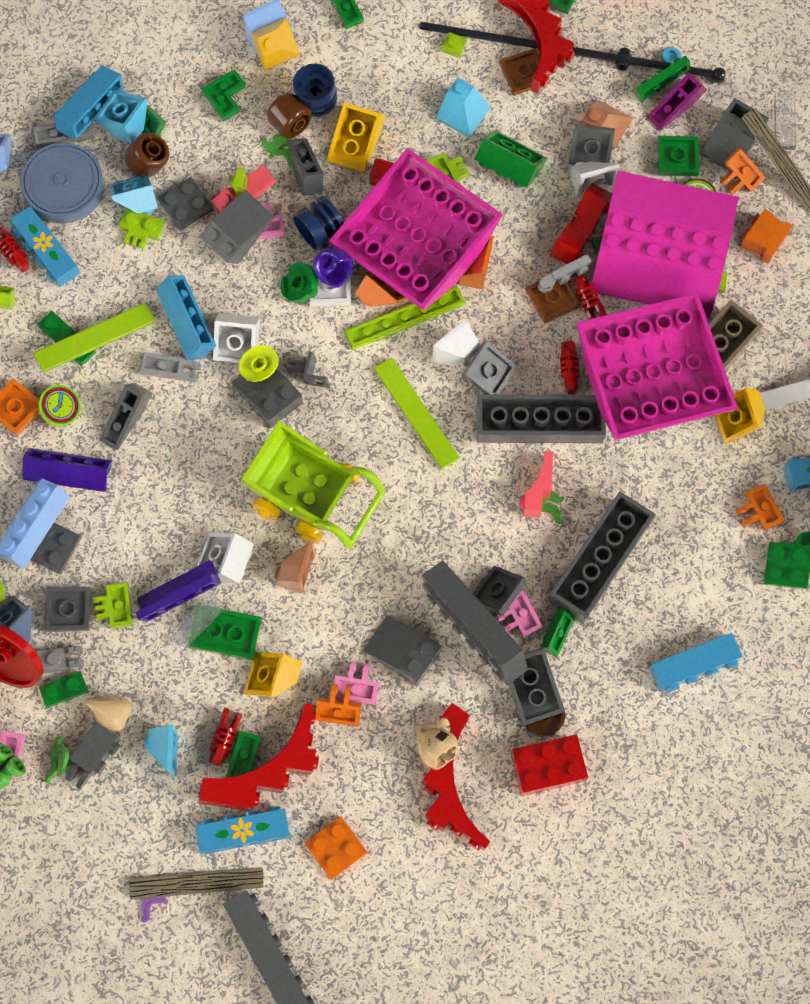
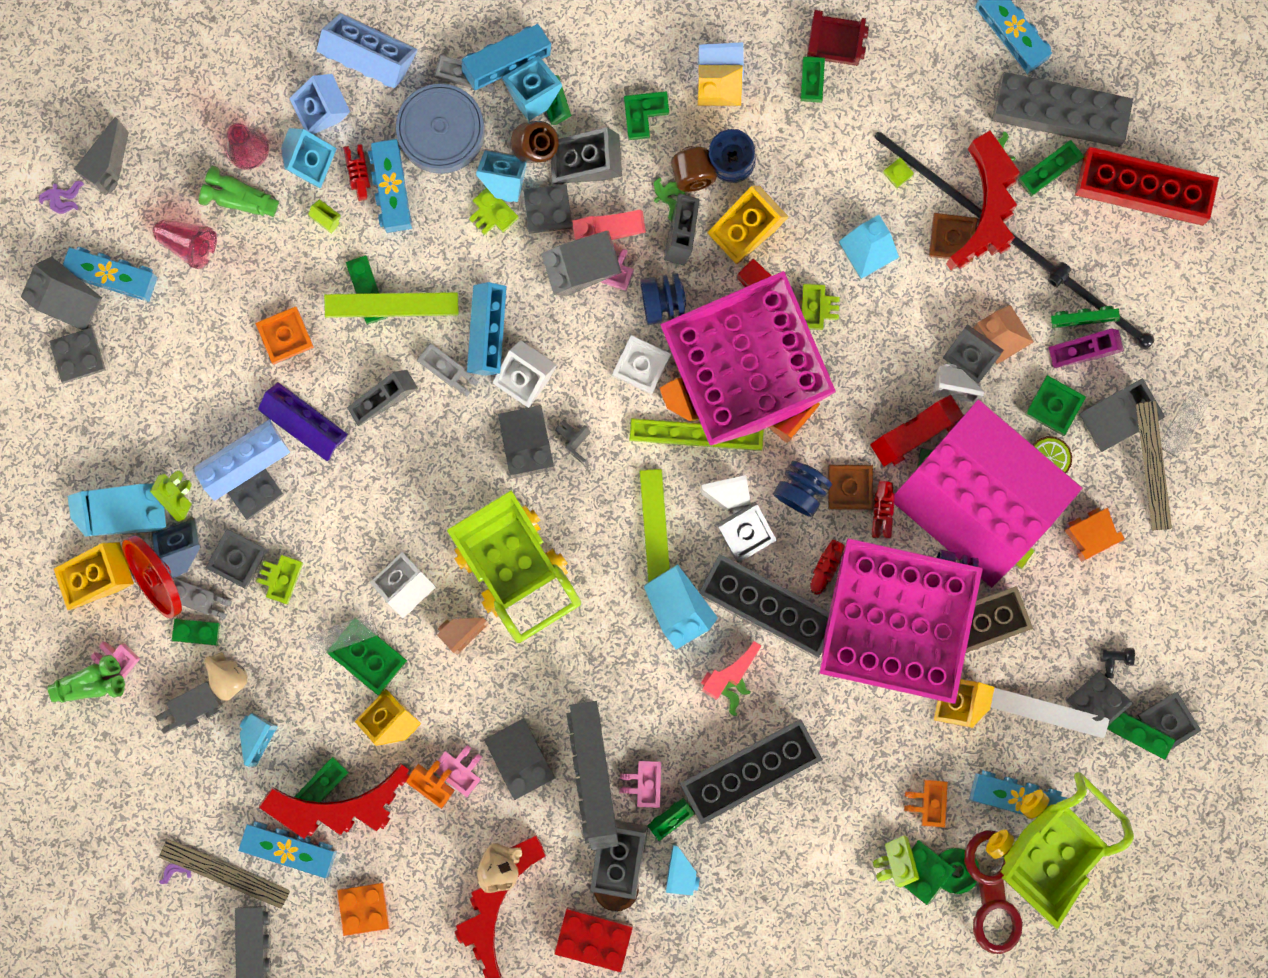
camera: 30 degrees right, 10 degrees up
(58, 752) = (158, 697): bright green piece -> none
(59, 405) = (325, 356): tile -> none
(177, 591) = (342, 596): dark purple panel -> none
(197, 148) = (587, 157): none -> dark grey slope
(223, 737) = (314, 754): red hinge -> none
(239, 181) = (606, 218): lime plate -> none
(258, 363) = (527, 405): neon yellow dish -> none
(307, 288) = (619, 357): green plate -> none
(333, 266) = (650, 353): dark purple piece -> none
(468, 453) = (679, 607): none -> medium azure slope
(499, 590) = (636, 752): dark grey plate -> none
(510, 159) = (887, 324): green slope -> none
(516, 312) = (804, 485): none -> dark blue wheel
(563, 274) = (869, 473): light grey hinge -> none
(590, 669) = (681, 874): none -> medium azure slope
(670, 54) = (1109, 295): medium azure tile -> none
(696, 662) = (783, 917): dark azure brick -> none
(744, 170) = (1110, 455): orange hinge -> none
(764, 564) = (901, 862): none -> lime hinge

